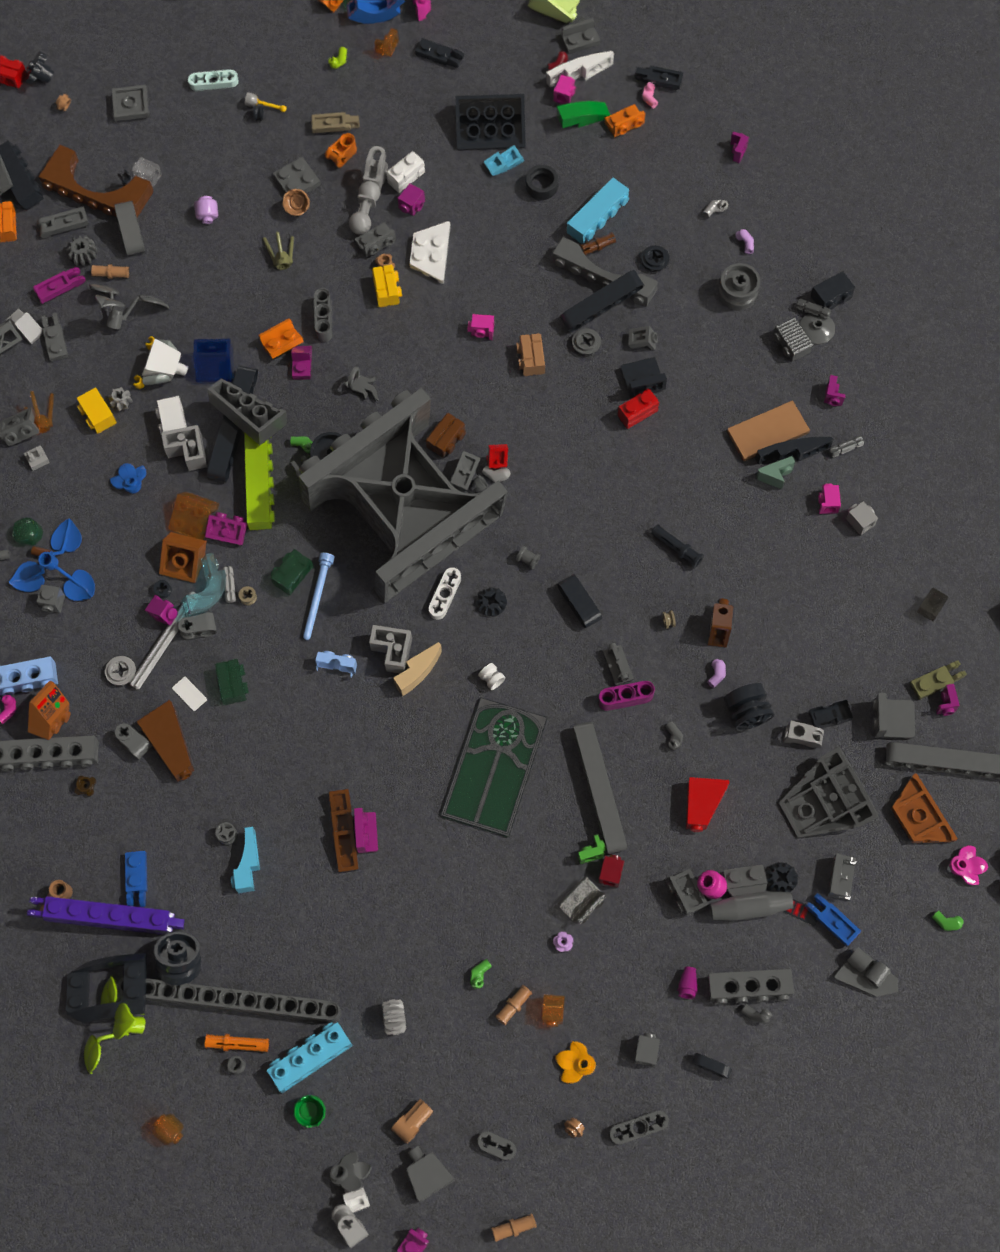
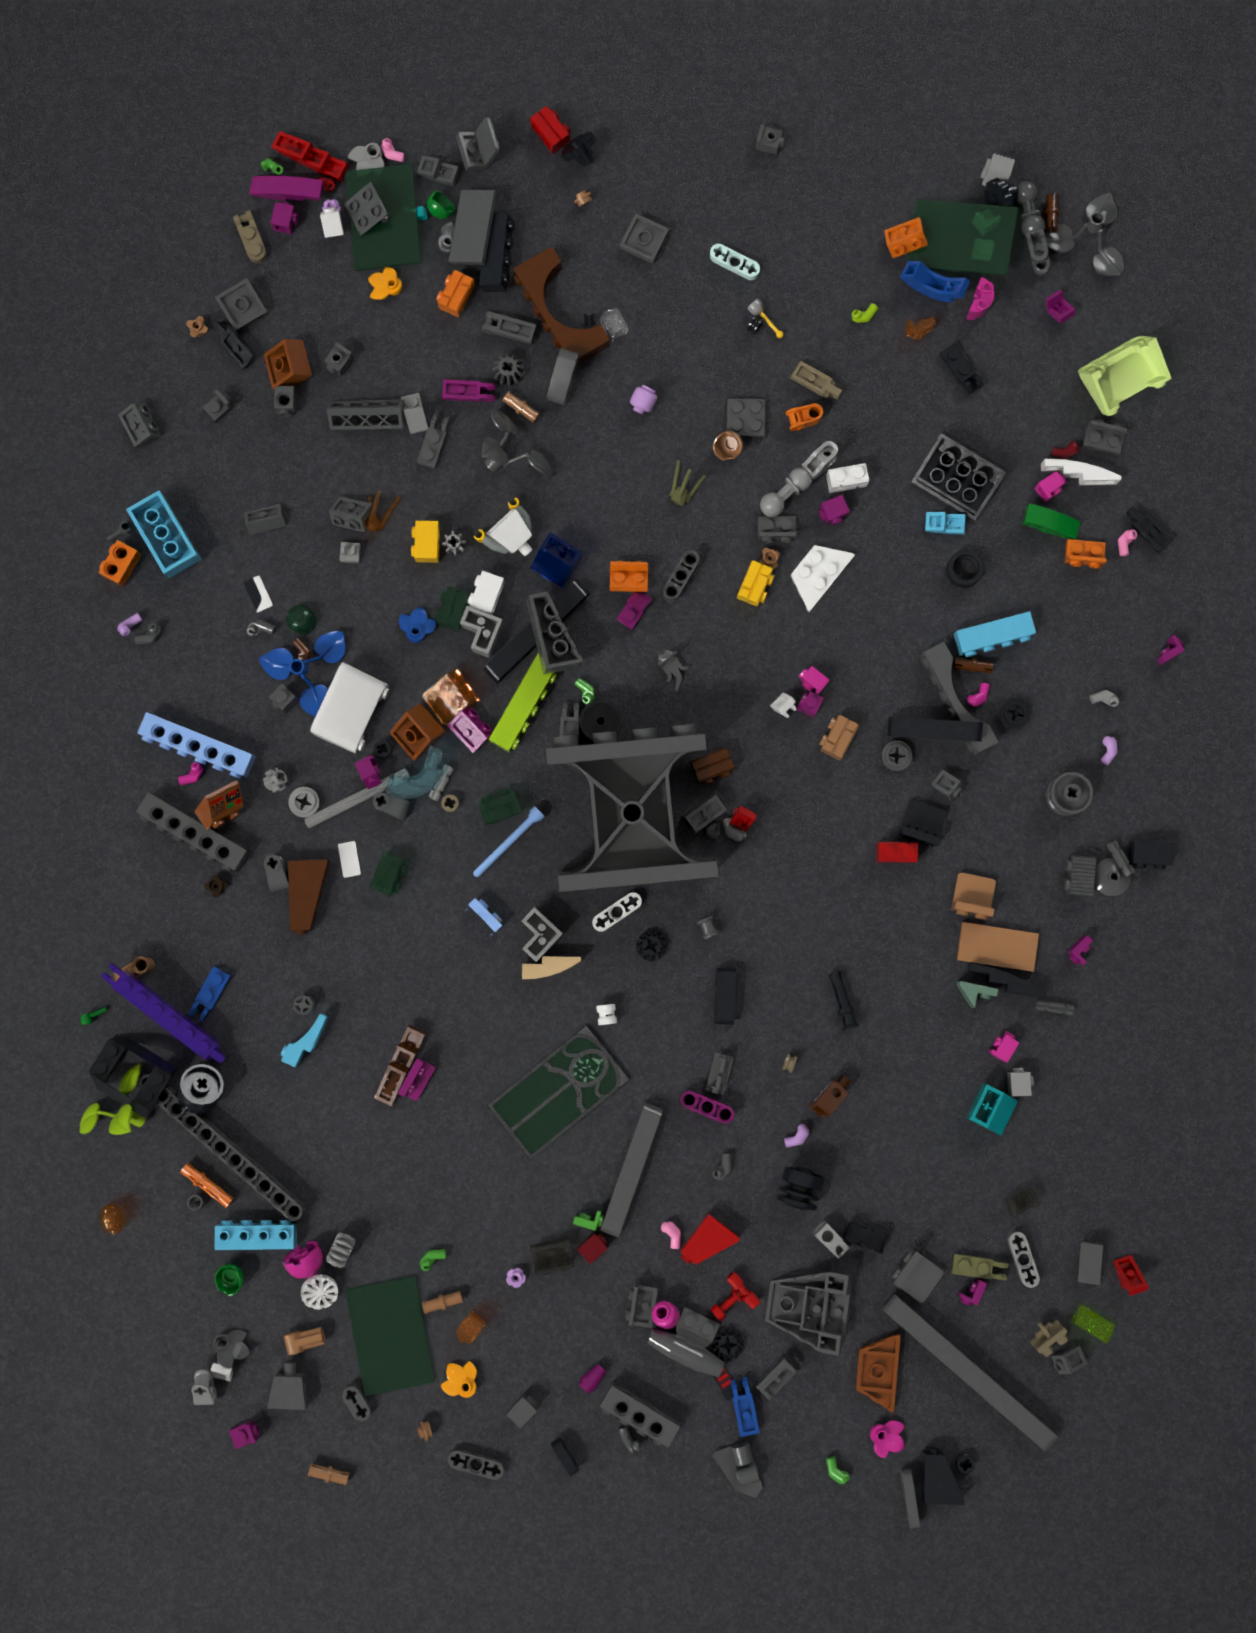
camera: 30 degrees right, 15 degrees up
(36, 969) = (87, 1018): none -> green hand
(84, 666) = (275, 780): none -> light grey gear
(111, 572) = (348, 708): none -> white windscreen
(151, 447) = (452, 608): none -> clear green brick
(368, 1048) = (305, 1261): none -> dark pink cylinder
(398, 1068) = (319, 1291): none -> white wheel
(470, 356) = (782, 704): none -> white tile
(487, 1068) = (389, 1336): none -> clear green piece
(491, 344) = (810, 704): none -> magenta brick
(620, 262) = (980, 697): none -> dark pink arm
(671, 815) = (674, 1232): none -> bright pink arm
(722, 404) = (973, 896): none -> medium nougat bracket
(760, 828) = (739, 1292): none -> red bar
(854, 550) = (991, 1109): none -> teal slope
(952, 646) = (1023, 1274): none -> light grey beam

